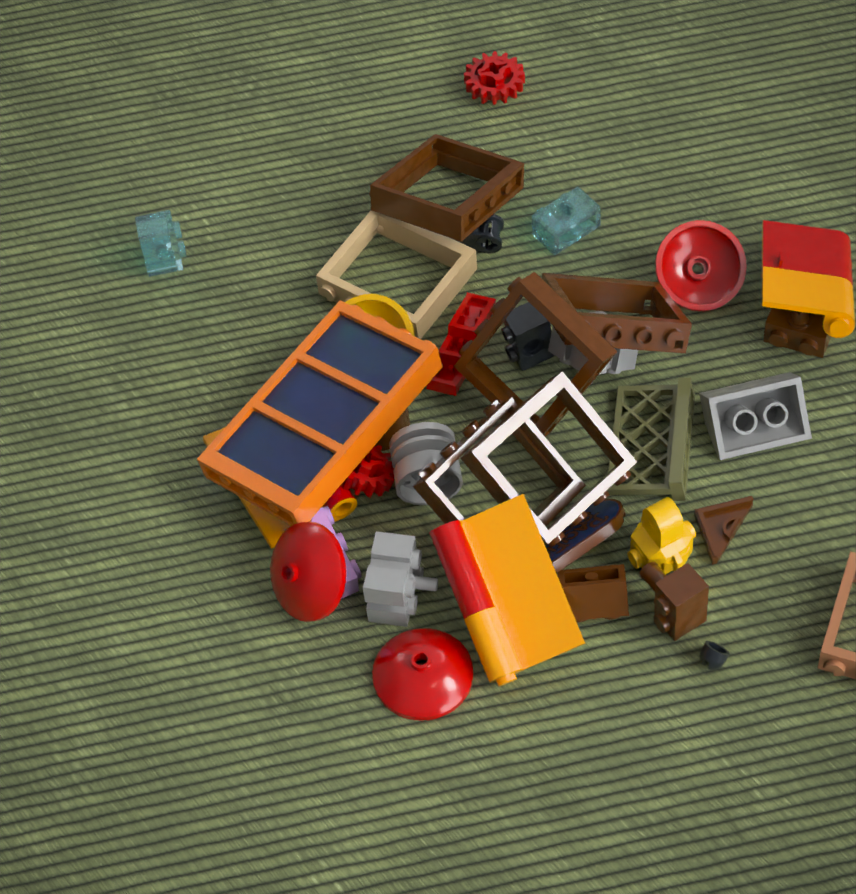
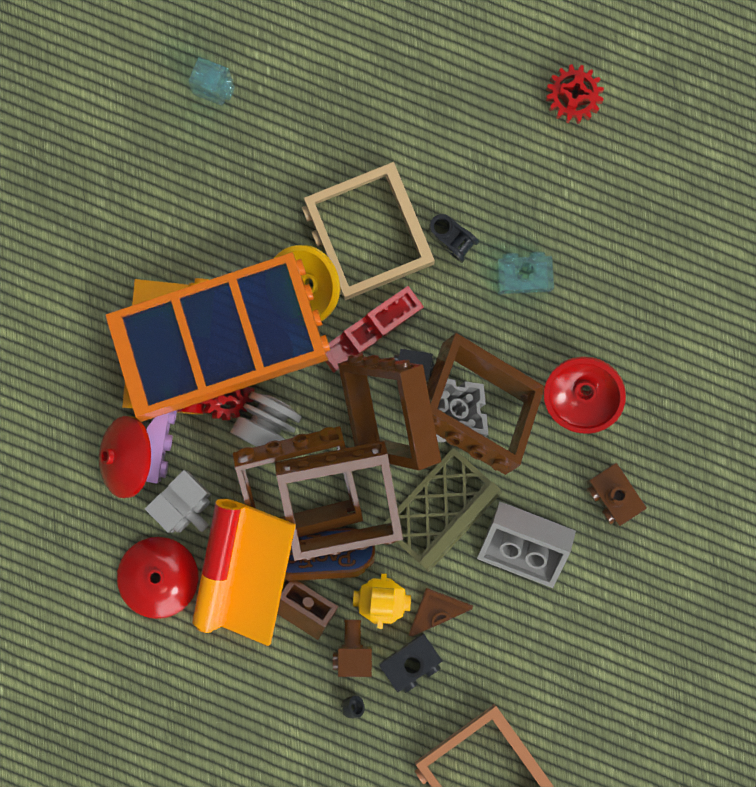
camera: 25 degrees right, 30 degrees up
(502, 175) = (447, 143): reddish brown window -> none
(737, 560) = (394, 664): none -> black brick
(809, 273) = (648, 468): door -> none

